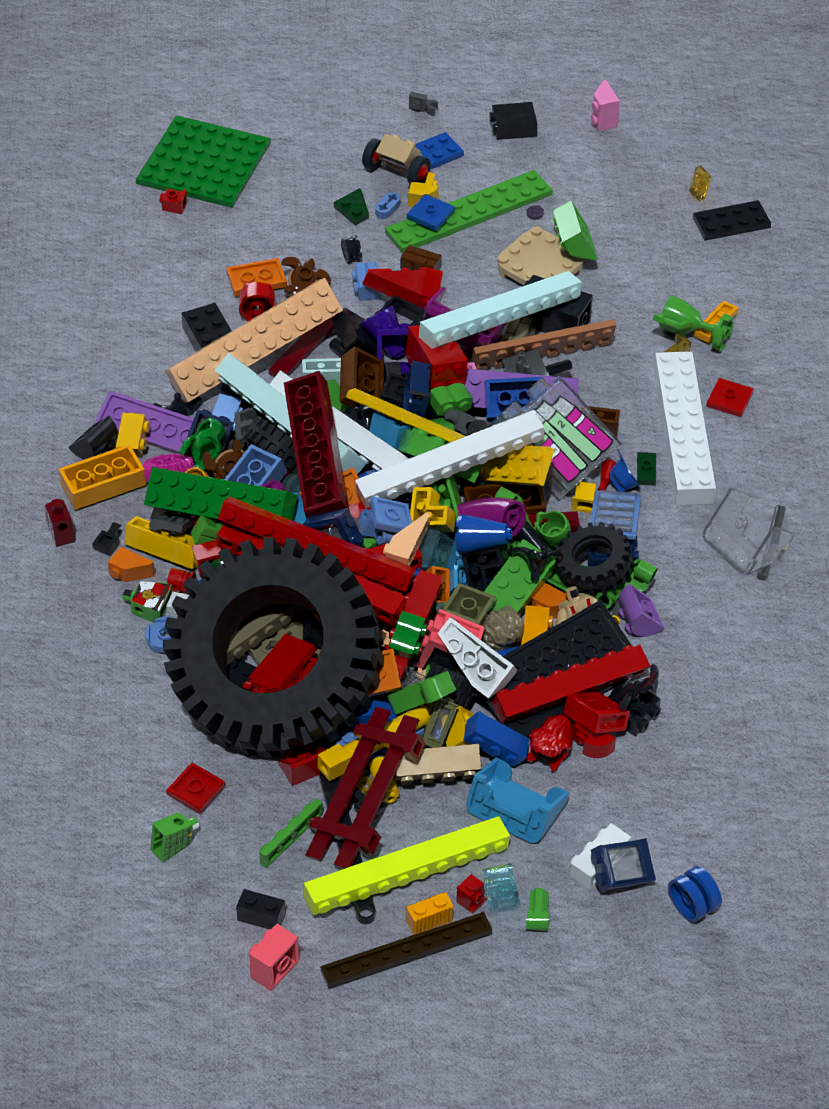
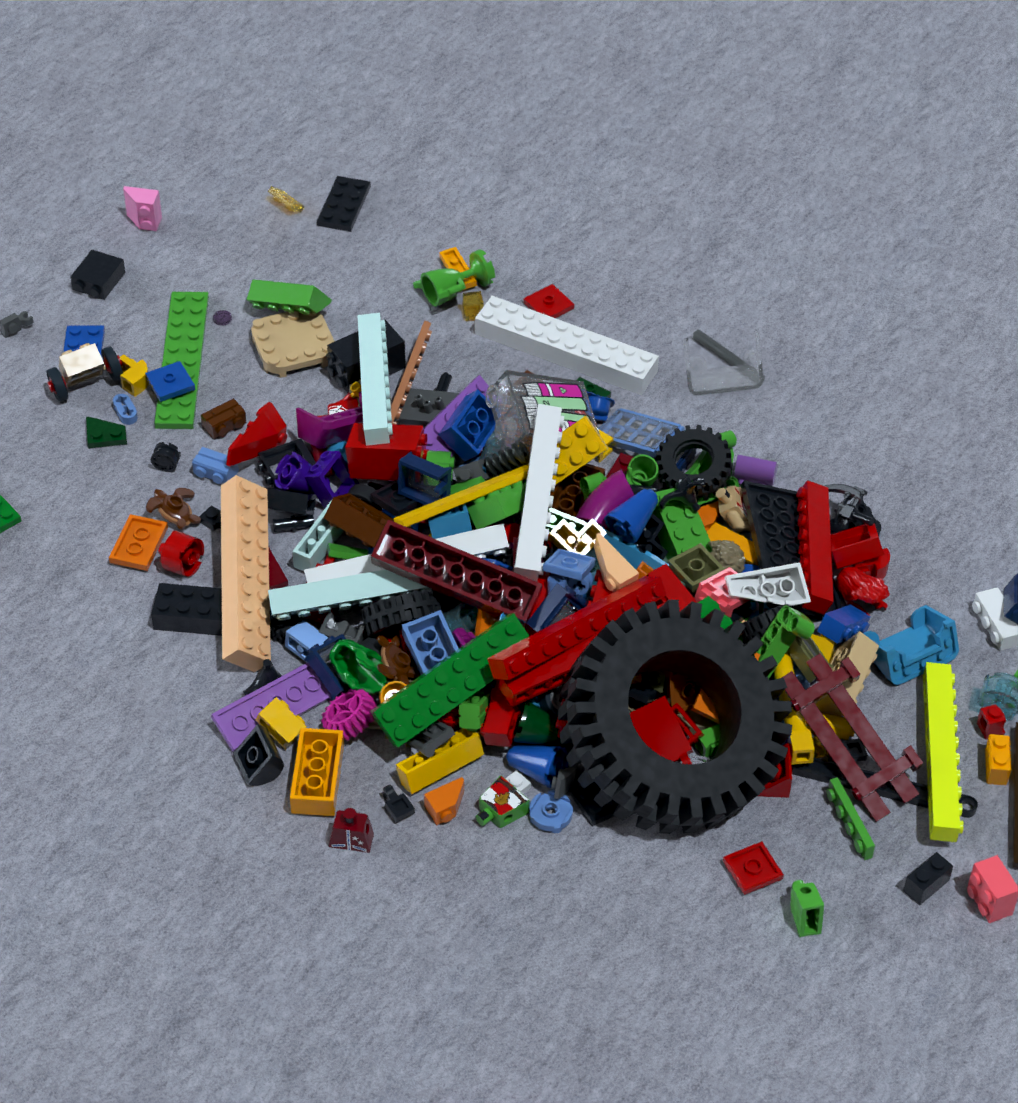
camera: 60 degrees left, 0 degrees up
(177, 578) = (495, 766): red piece -> none

